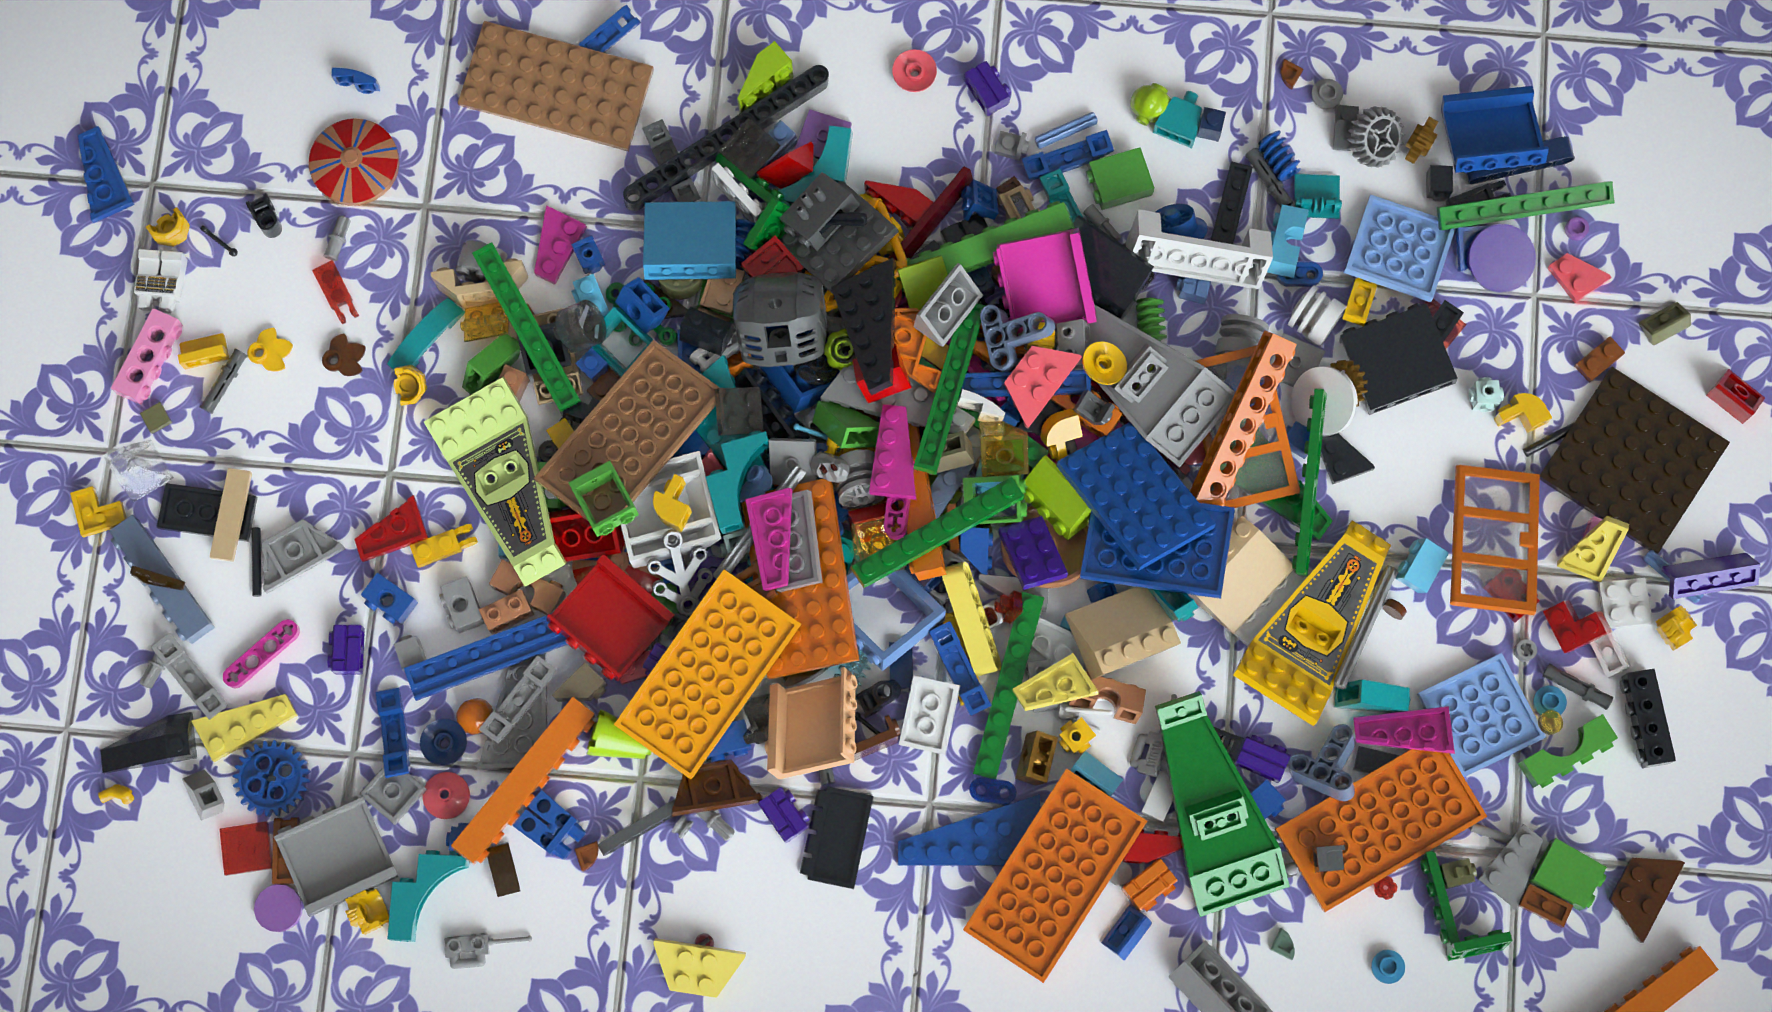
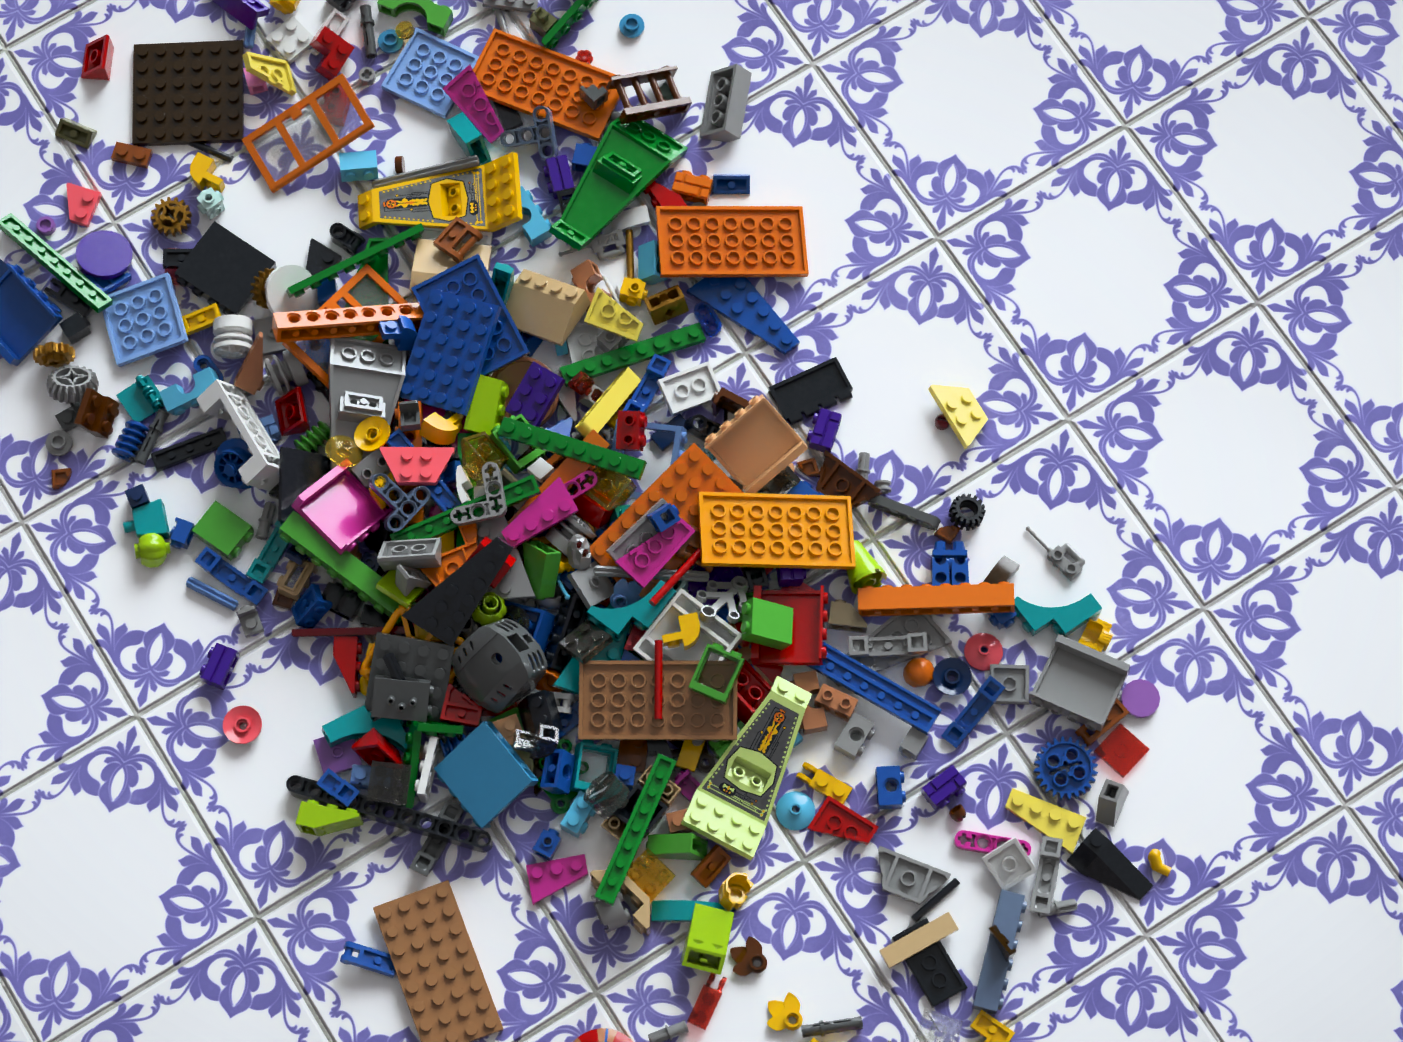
camera: 130 degrees left, 5 degrees down
(227, 651) = (1009, 864): none -> white plate
(320, 644) = (957, 813): none -> reddish brown hinge
(383, 325) = (707, 939): none -> lime slope
(447, 509) = (793, 820): none -> medium azure dish
(450, 382) = (710, 866): none -> dark orange plate
(541, 417) = (687, 784): none -> magenta bracket
(583, 901) = (965, 521): none -> black tyre
(622, 592) = (767, 623): none -> bright green brick
(645, 446) = (658, 679): none -> red bar
(678, 300) = (538, 744): none -> clear smoke brick
(731, 536) = (675, 578): none -> red bar
(759, 773) = (809, 467): none -> dark orange tile
(782, 105) = (337, 787): none -> blue slope
(796, 565) = (671, 517): none -> blue brick
(918, 609) = (631, 430): none -> red brick
(920, 290) = (408, 578): none -> light grey slope
(937, 408) = (488, 505): none -> light grey beam
(947, 498) = (540, 469): none -> white tile
(1106, 313) = (343, 451): none -> clear yellow dish
(1122, 767) = (629, 253): none -> pearl gold bar
(1147, 139) = (181, 534): none -> blue brick
(1194, 323) = (292, 413): none -> red slope
(1195, 467) = (401, 331): none -> blue brick
(1221, 696) = (537, 228): none -> medium azure arch
(1264, 305) = (251, 371): none -> nougat slope
(1267, 596) = (453, 235): none -> dark orange plate
(1271, 899) = (647, 110): none -> reddish brown fence
(1327, 139) = (97, 413): none -> reddish brown plate
(1344, 499) = (348, 241): none -> black piece
(1507, 344) = (177, 210): none -> pearl gold gear

